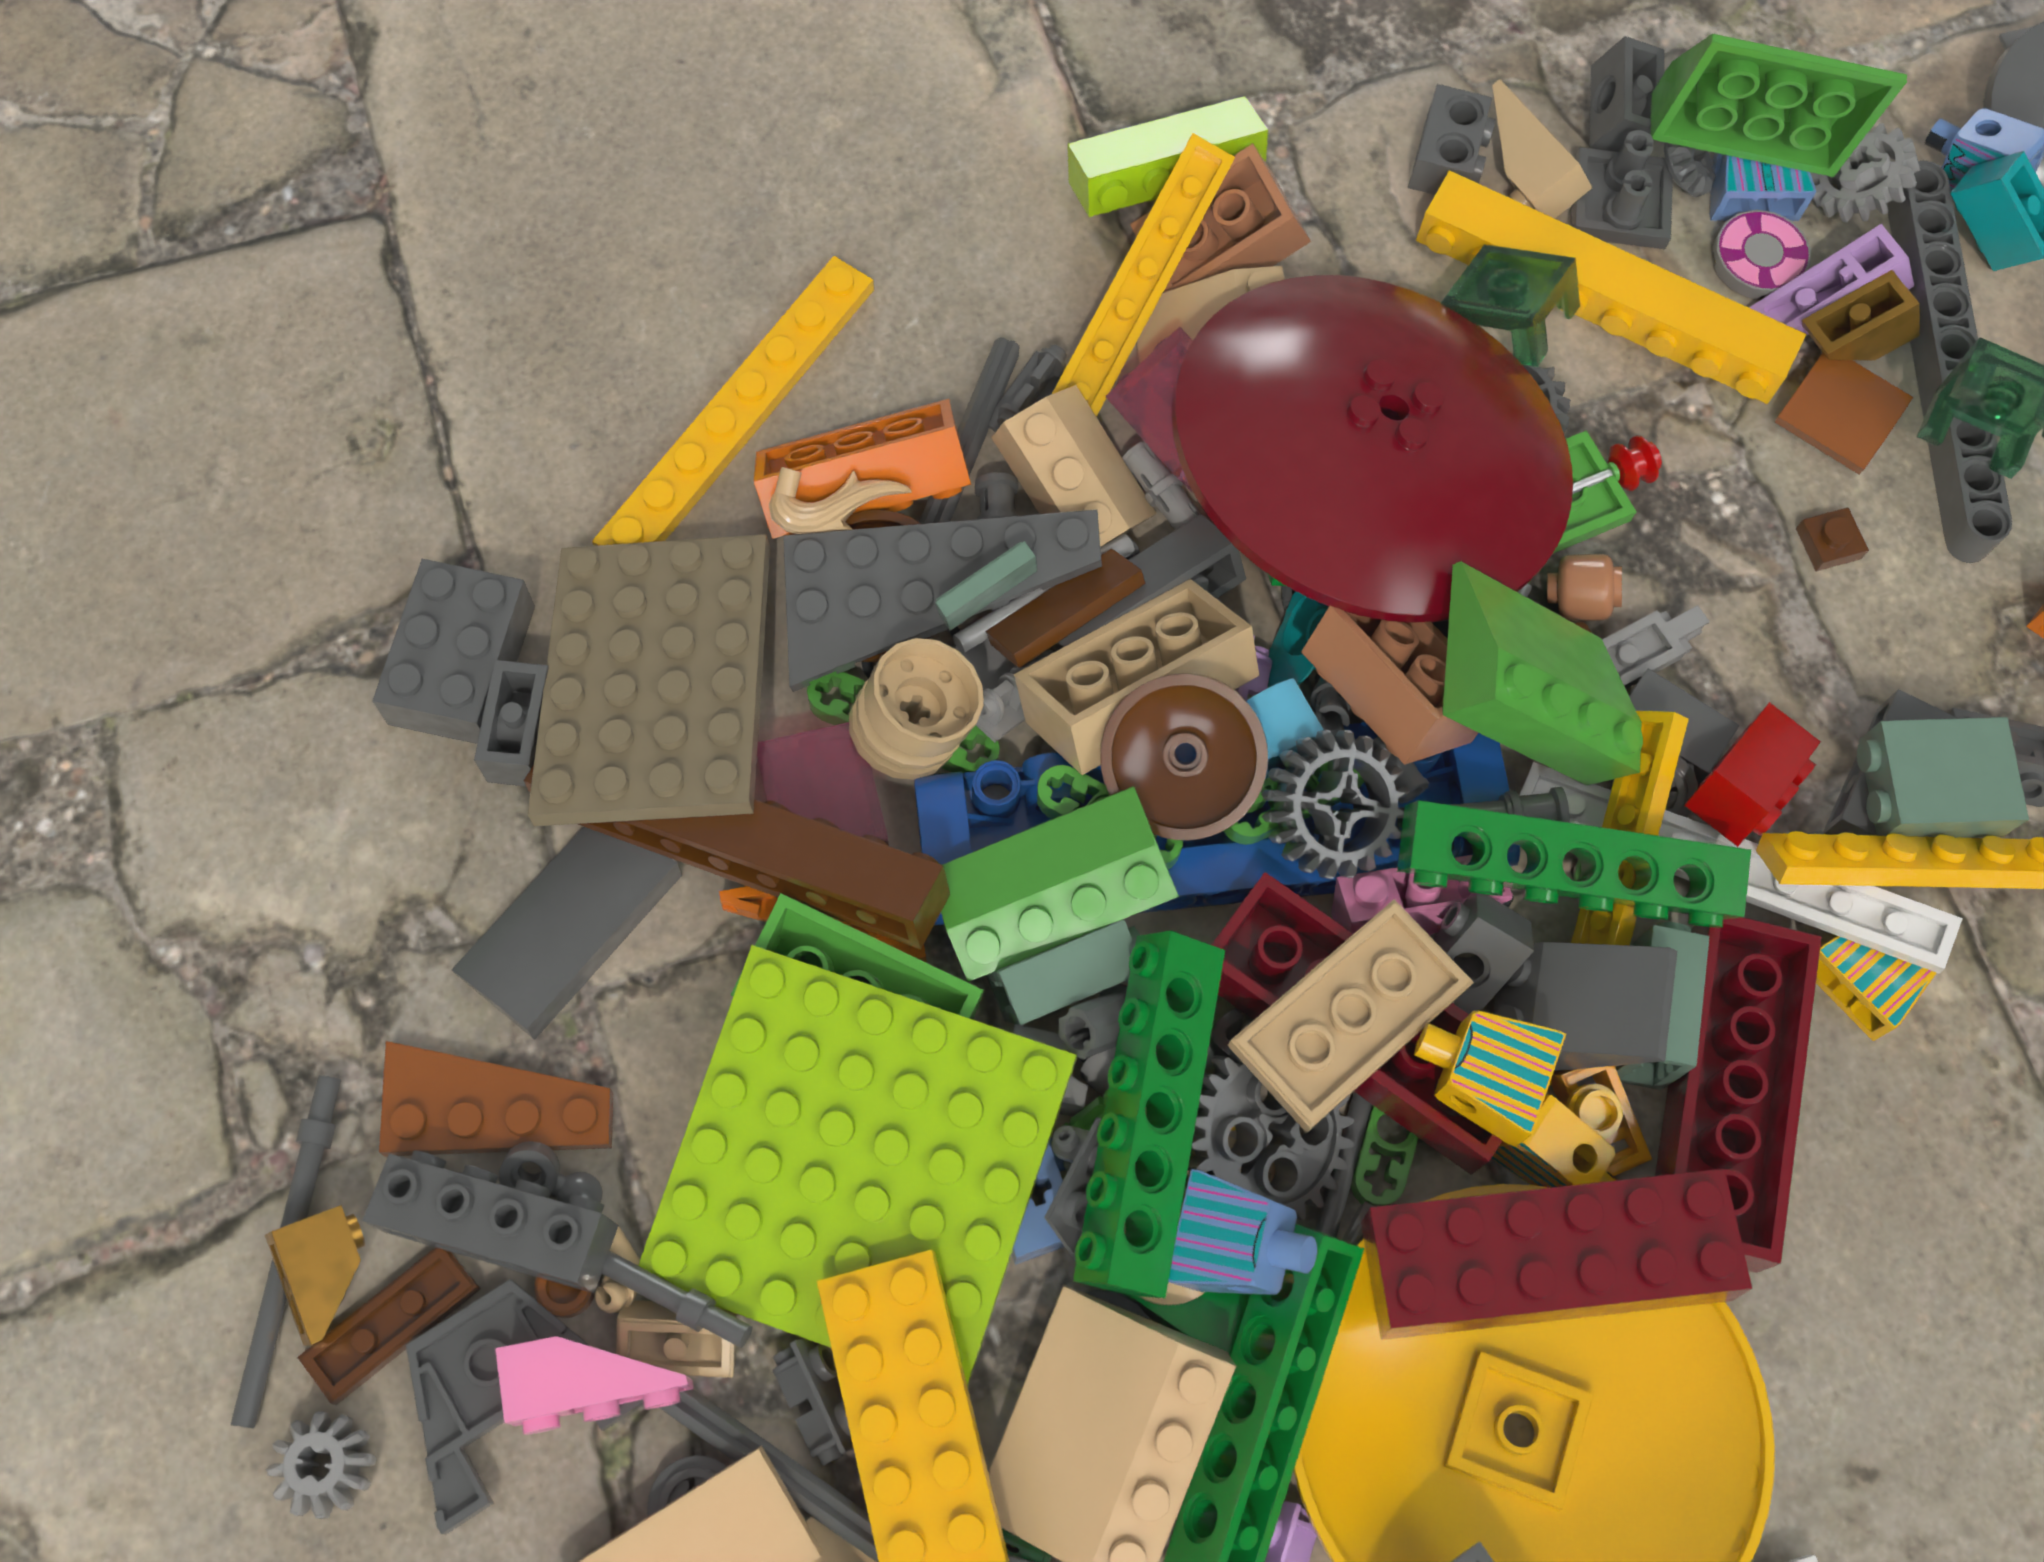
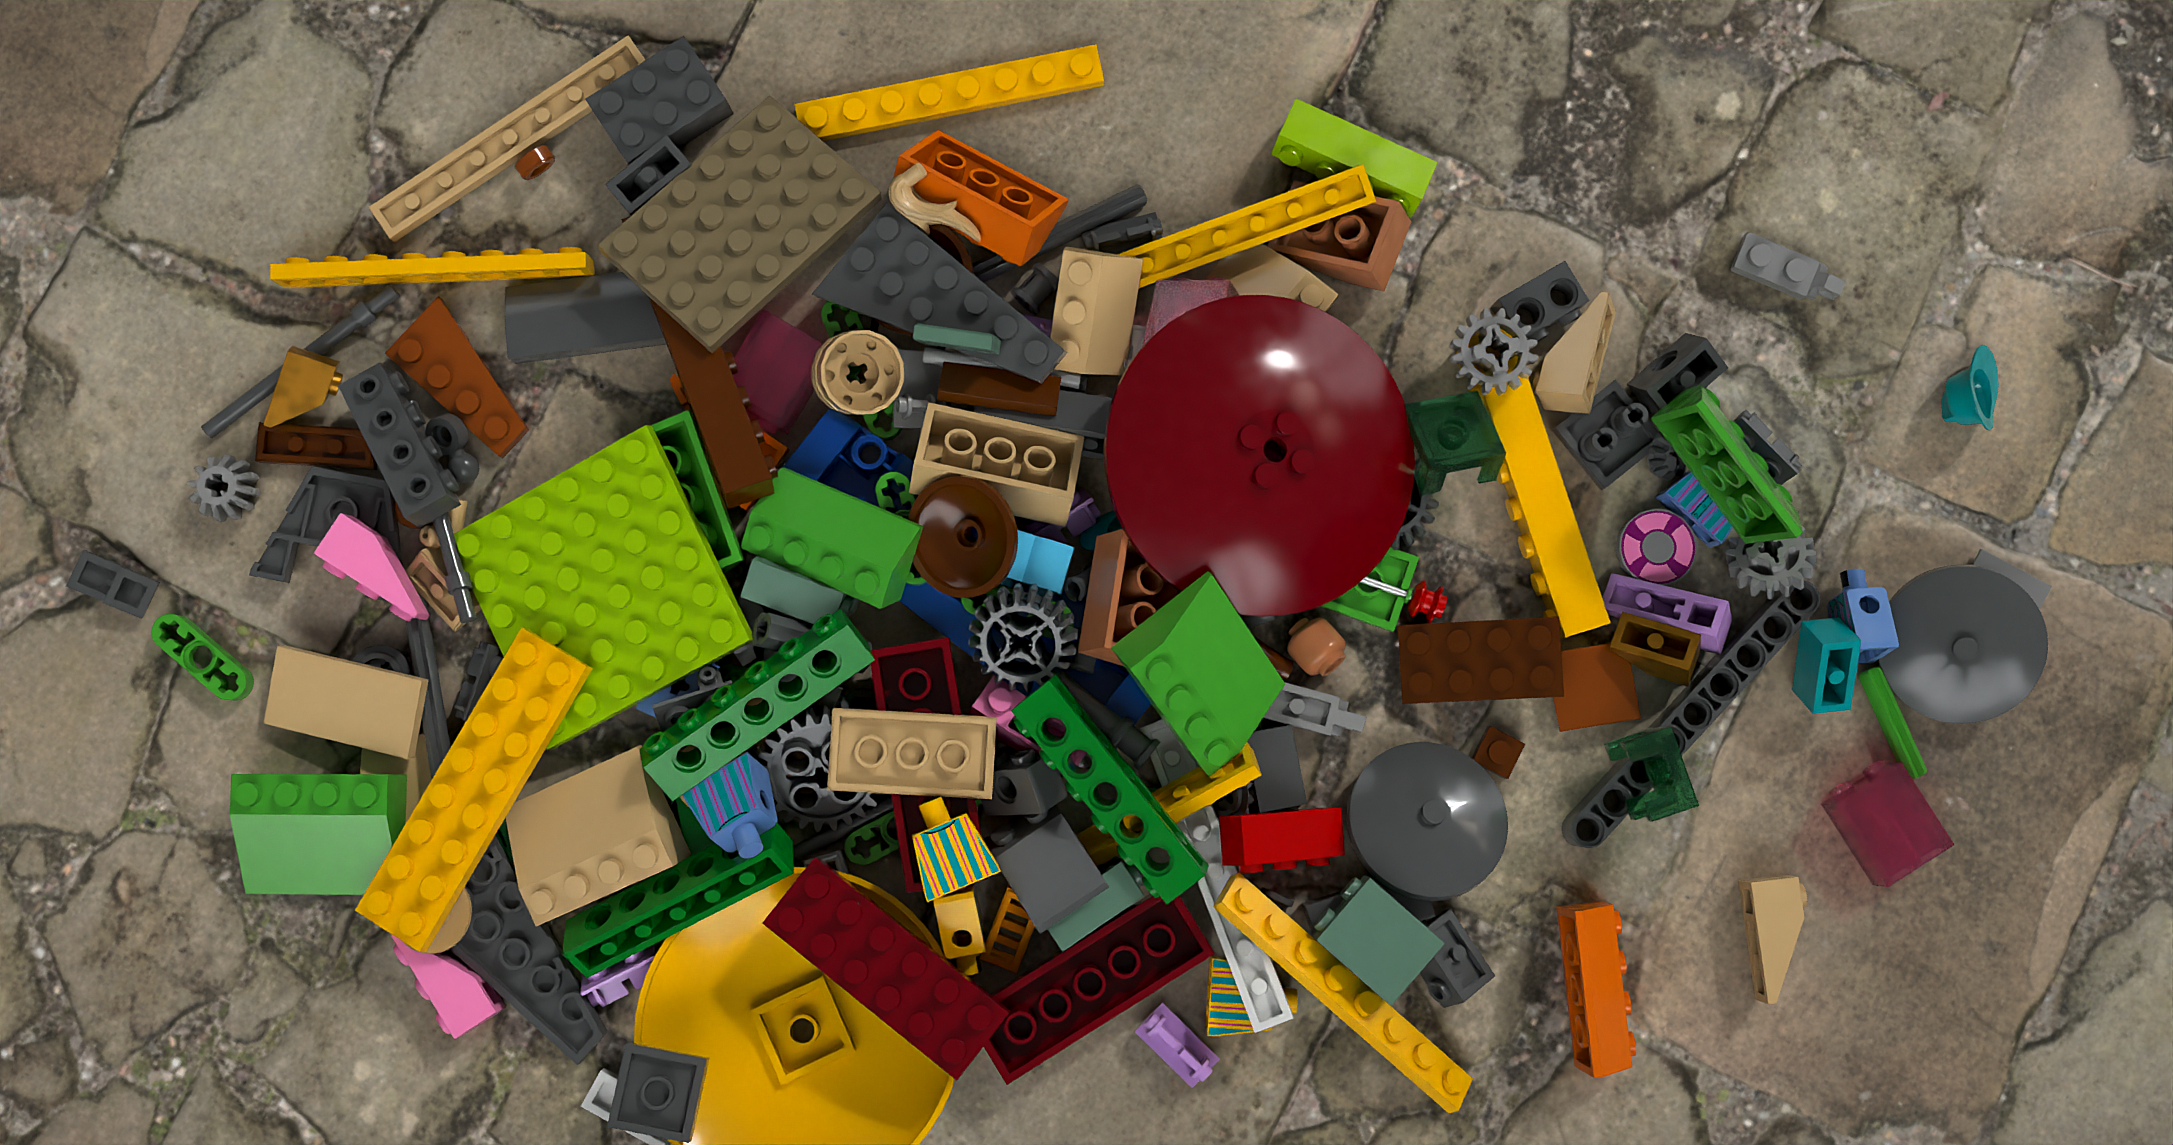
camera: 45 degrees right, 15 degrees up
(313, 835) = (502, 143): none -> tan plate
(339, 1030) = (418, 268): none -> yellow plate
(370, 817) = (535, 162): none -> dark orange tile
(1467, 195) = (1497, 368): none -> light grey gear
(1597, 1108) = (1001, 921): yellow plate -> none
(1736, 467) = (1481, 660): none -> reddish brown plate
(1852, 645) = (1427, 821): none -> dark grey dish
(1871, 1076) = (1177, 1045): none -> lavender hinge

